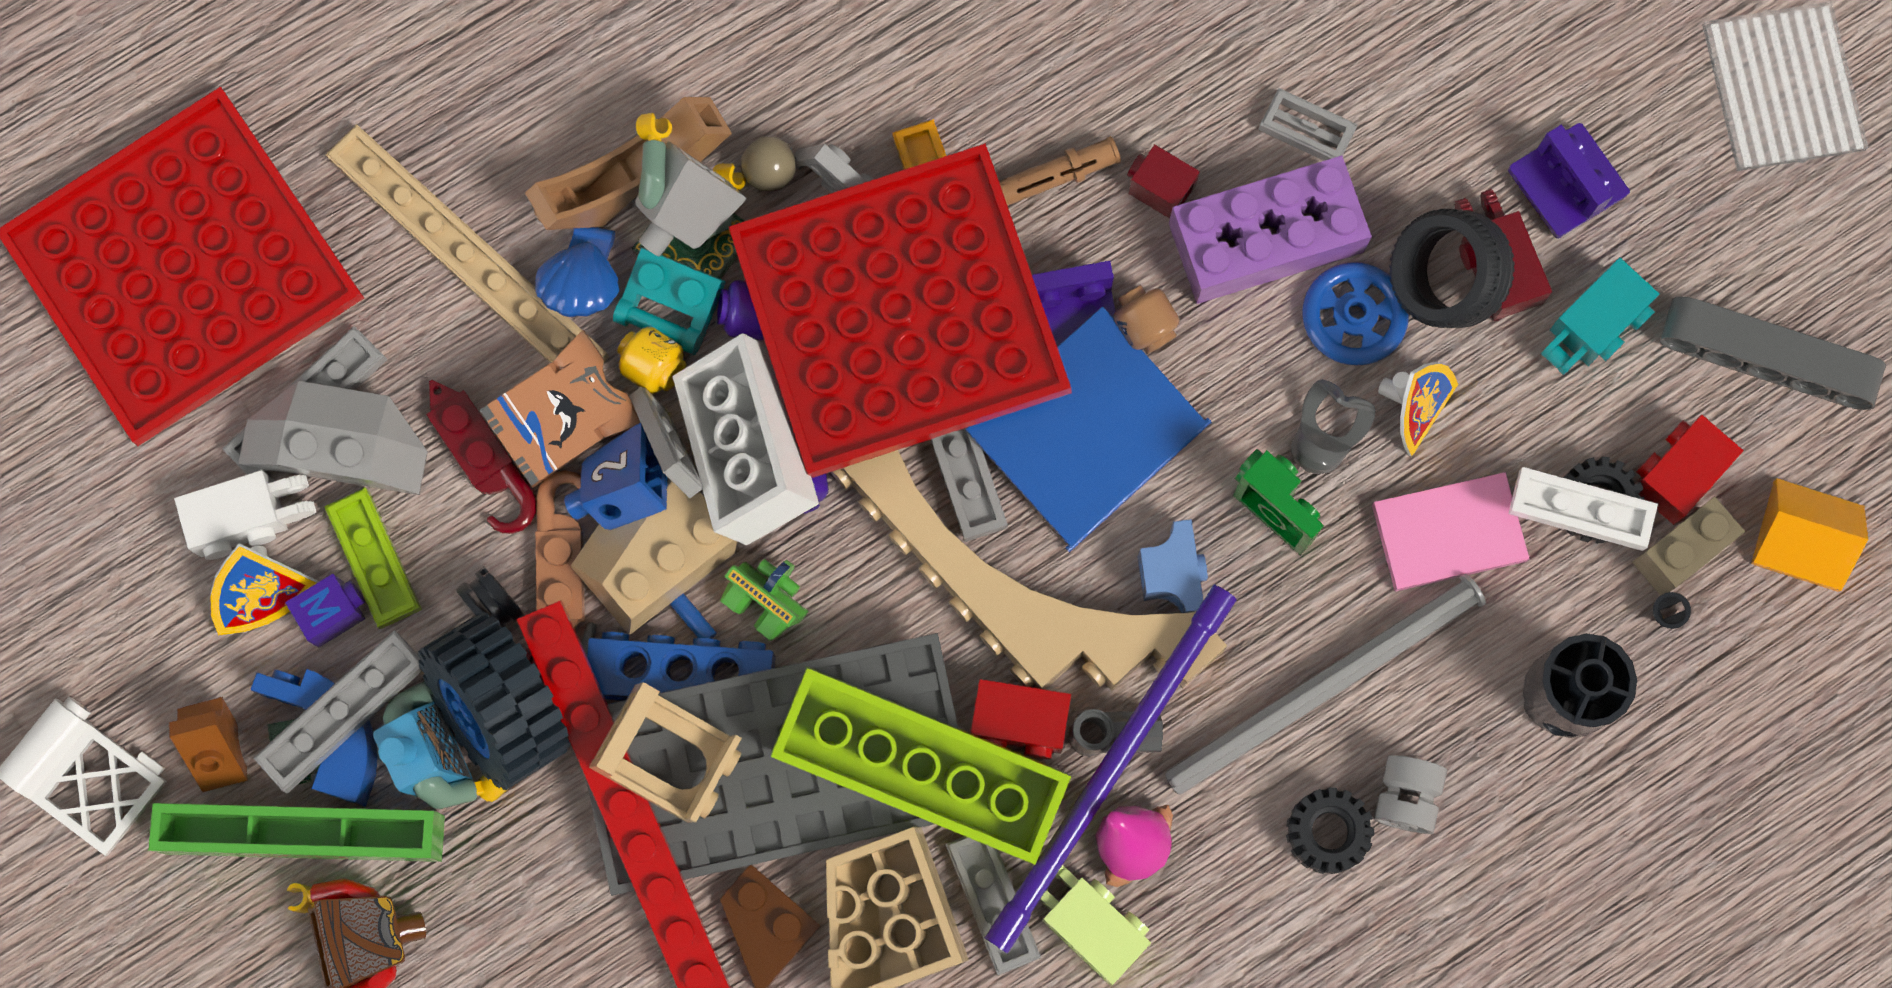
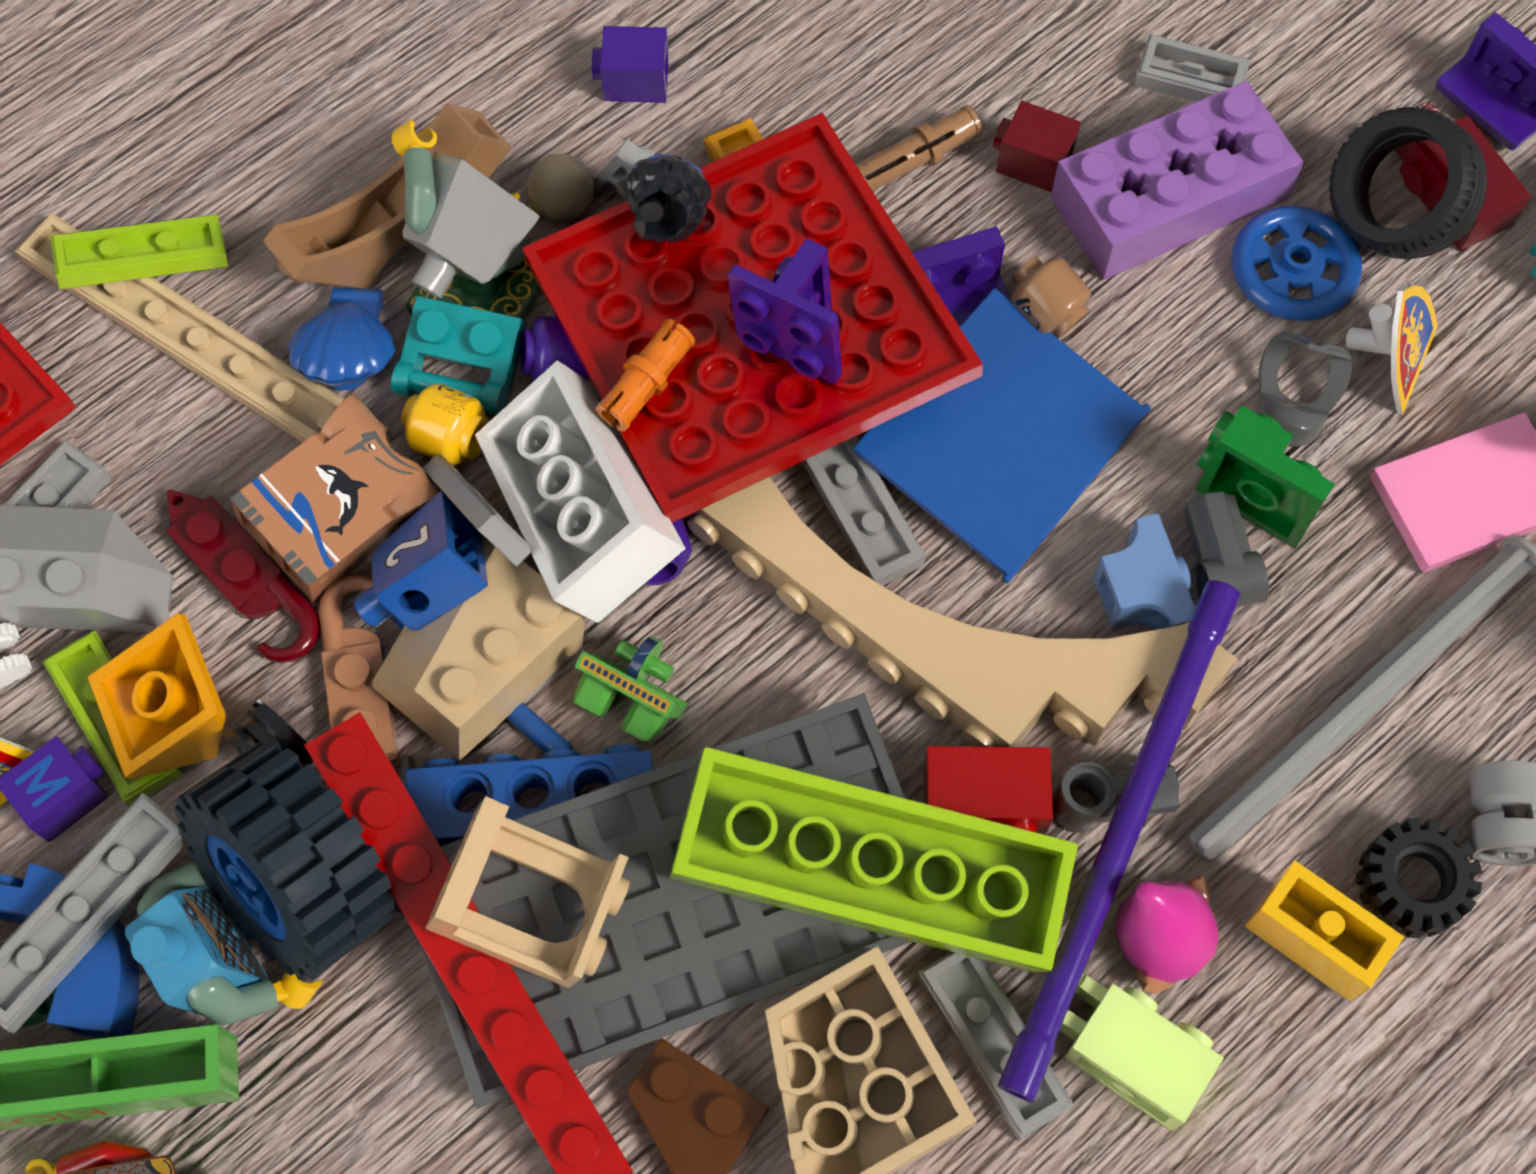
camera: 10 degrees left, 10 degrees down
(410, 556) = (160, 702): none -> light orange slope
(424, 171) = (138, 251): none -> lime tile
(808, 358) = (645, 375): none -> orange pin
(843, 57) = (632, 64): none -> dark purple brick
(845, 210) = (666, 197): none -> black piece
(926, 333) = (791, 313): none -> dark purple bracket
(1240, 565) = (1224, 548): none -> dark grey piece
(1246, 862) = (1324, 931): none -> yellow brick

